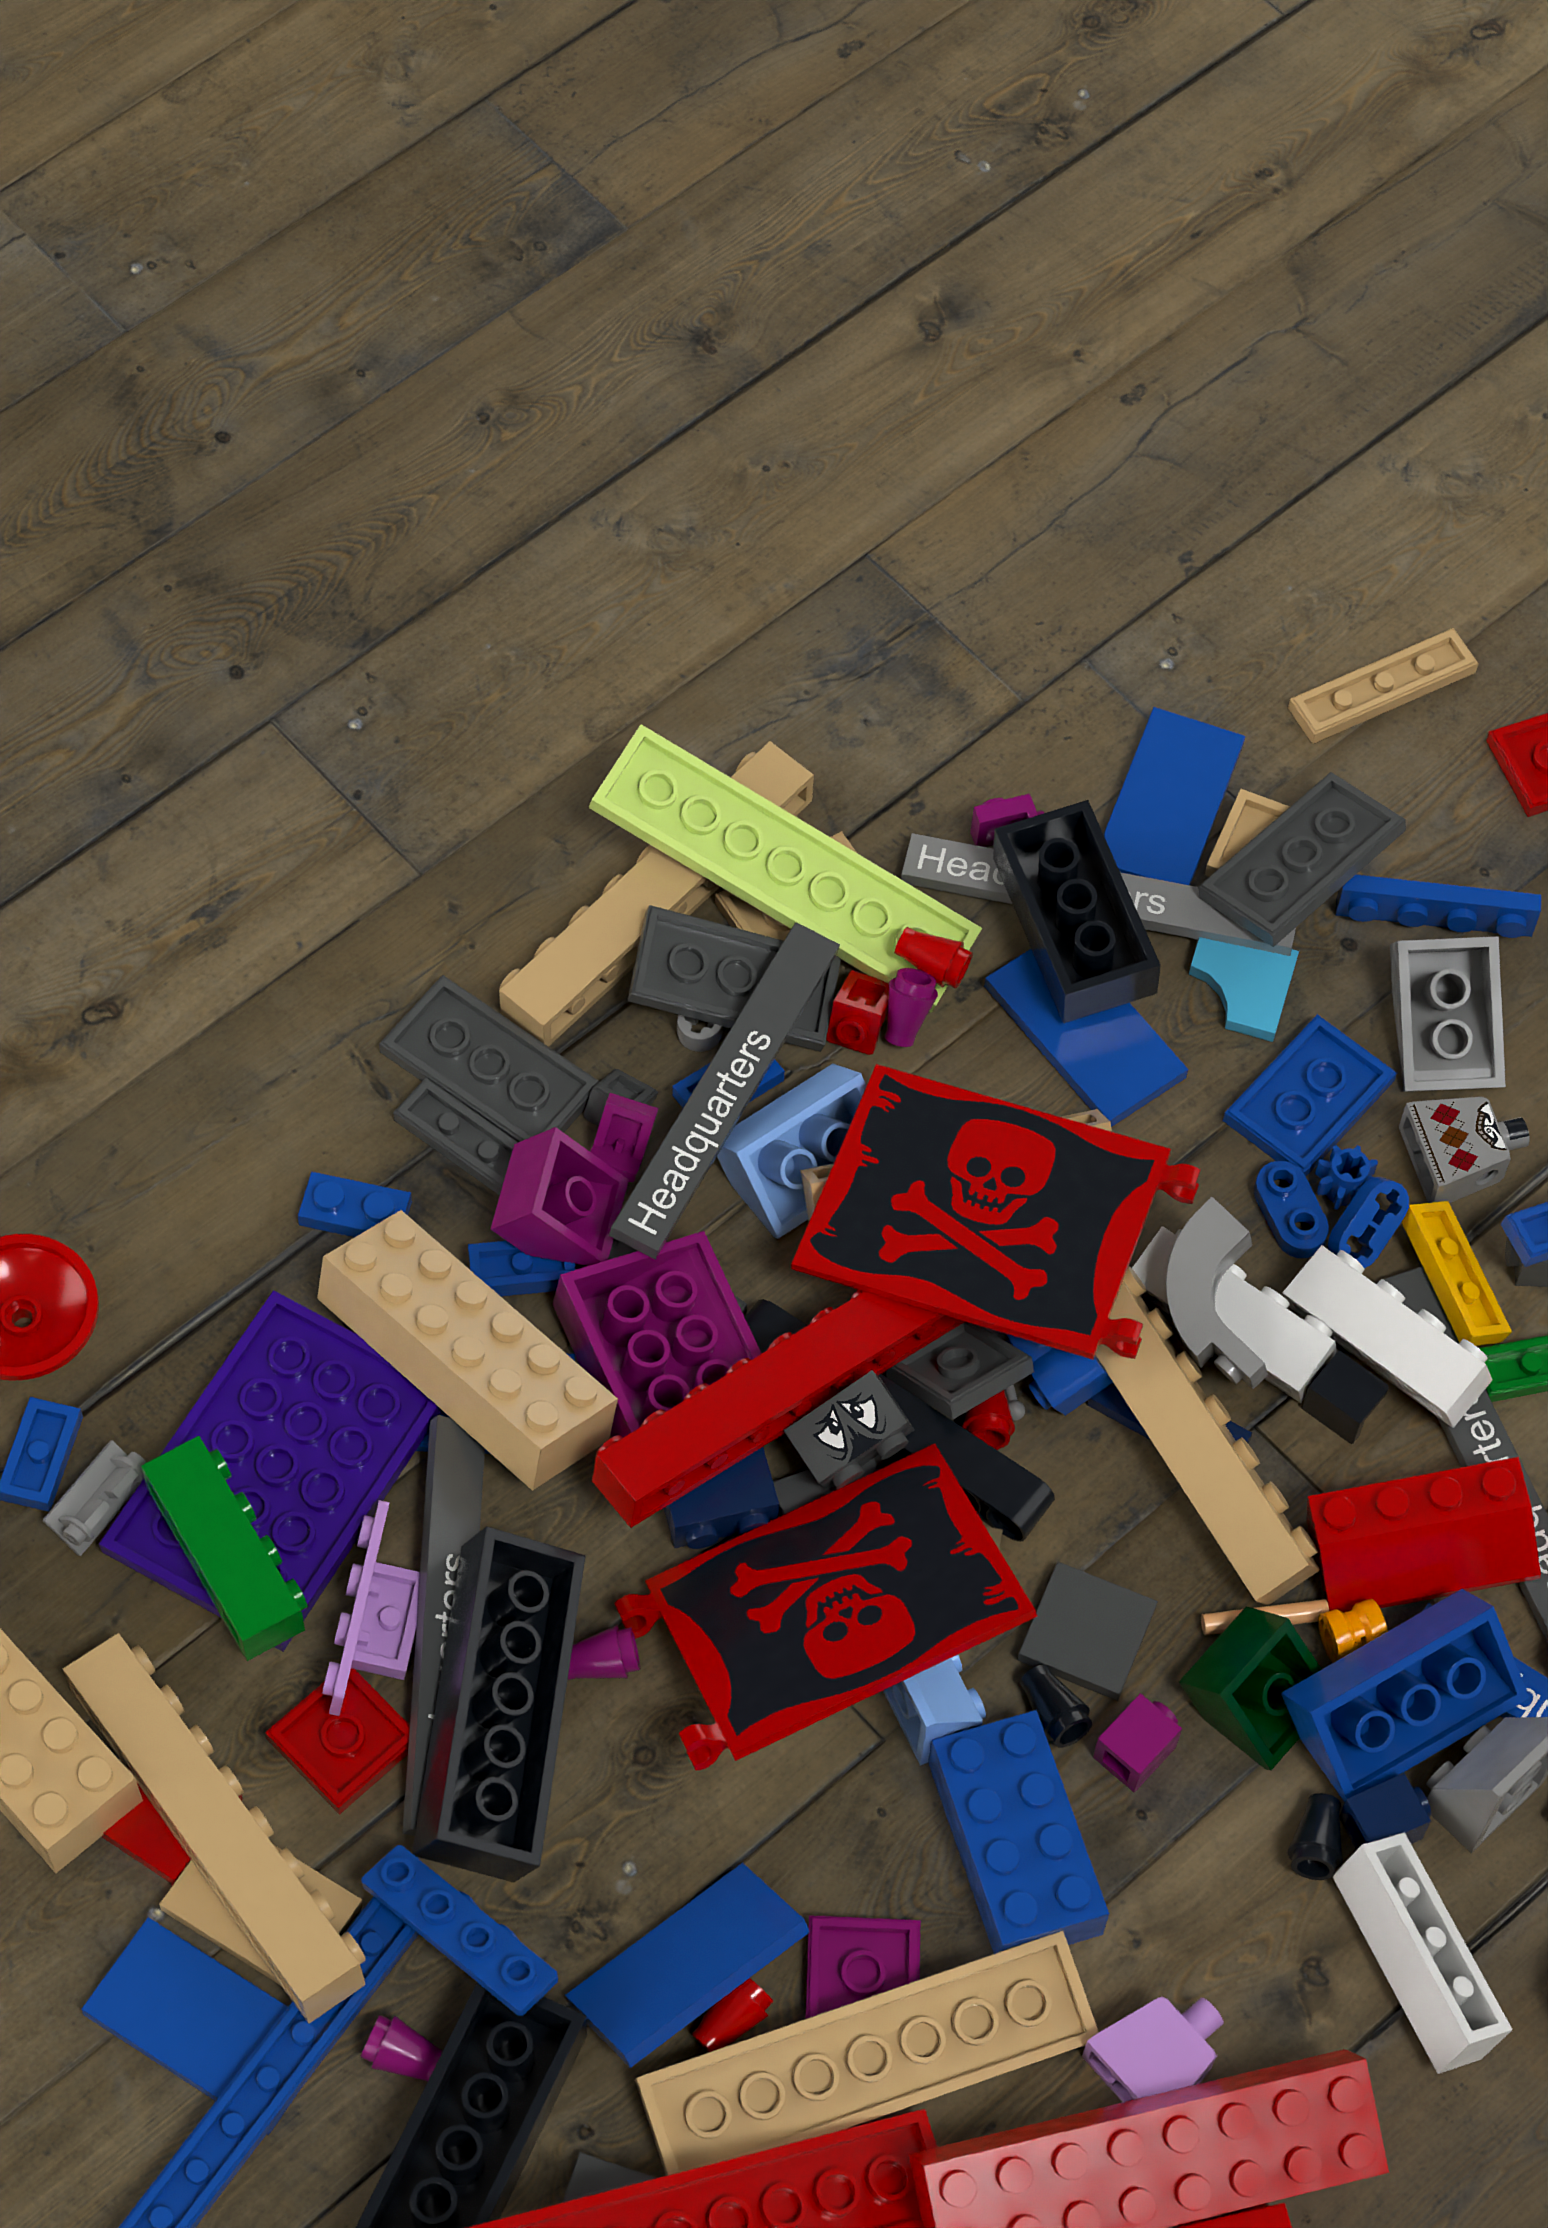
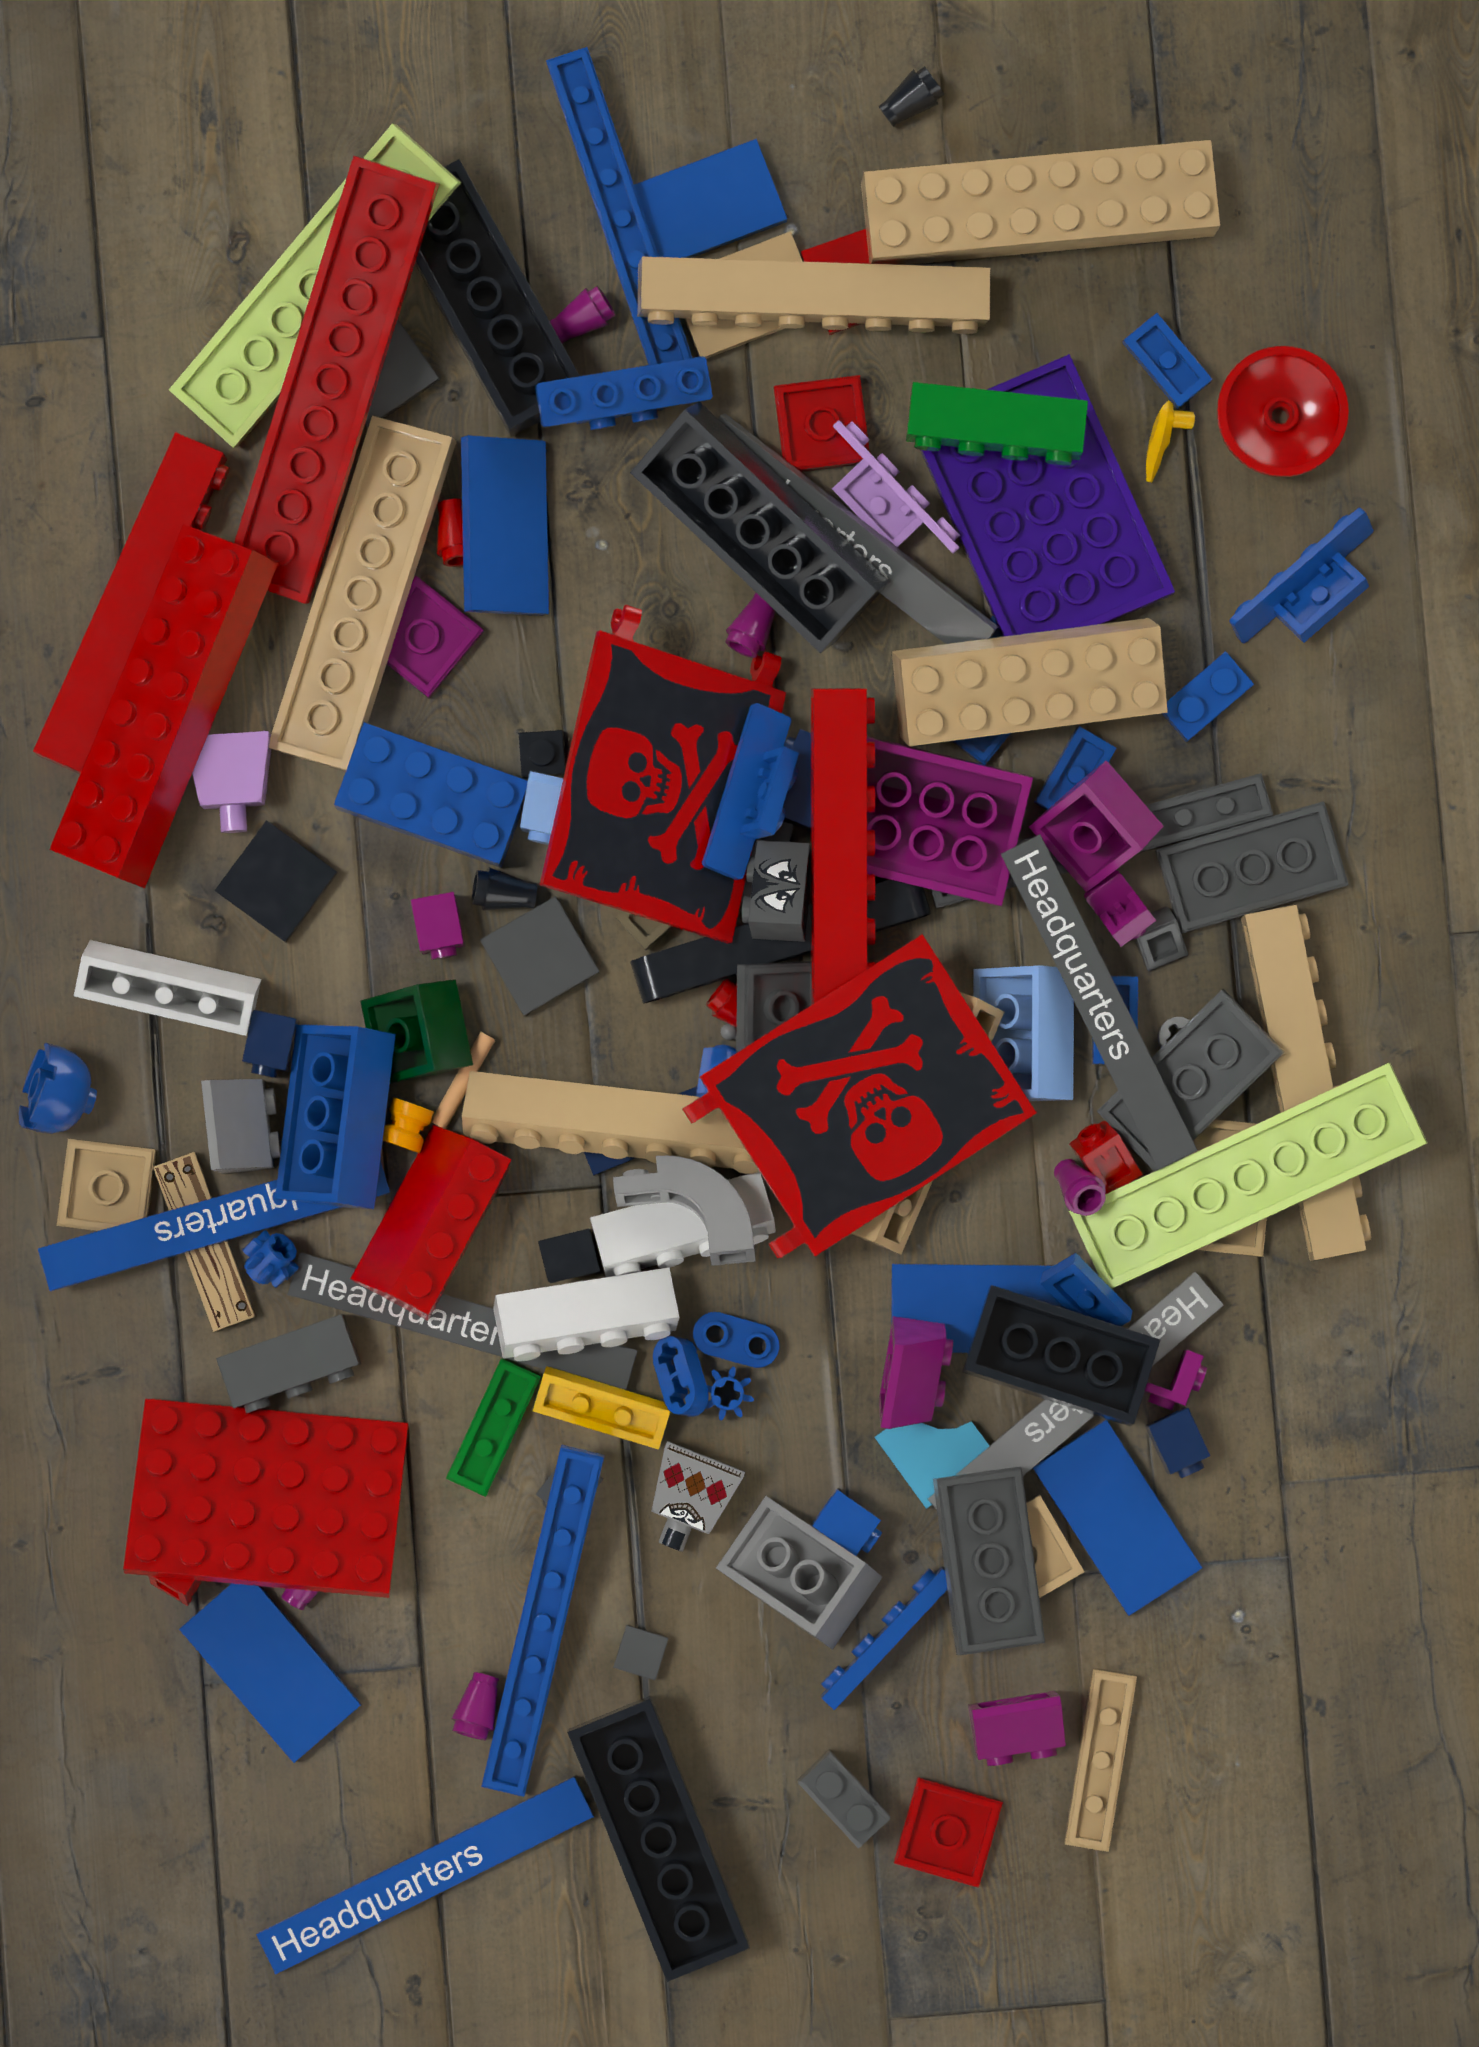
camera: 125 degrees right, 25 degrees up
(96, 1497) = (1107, 375): light grey hinge -> none
(121, 1414) = (1161, 435): none -> yellow bar
(177, 1173) = (1312, 587): none -> blue bracket
(770, 1516) = (753, 792): none -> blue bracket
(888, 1770) = (542, 753): none -> black plate
(935, 955) = (1100, 1230): red cone -> none
(1000, 938) = (1084, 1292): none -> blue plate
(1064, 781) = (1178, 1443): none -> dark blue brick
(1196, 1029) = (913, 1372): none -> magenta slope
(1224, 1937) = (276, 881): none -> black tile
(1310, 1096) = (811, 1425): blue tile -> none
(1317, 1842) = (290, 989): black cone -> none
(1371, 1002) = (848, 1524): none -> blue brick
(1415, 756) = (1017, 1726): none -> magenta slope

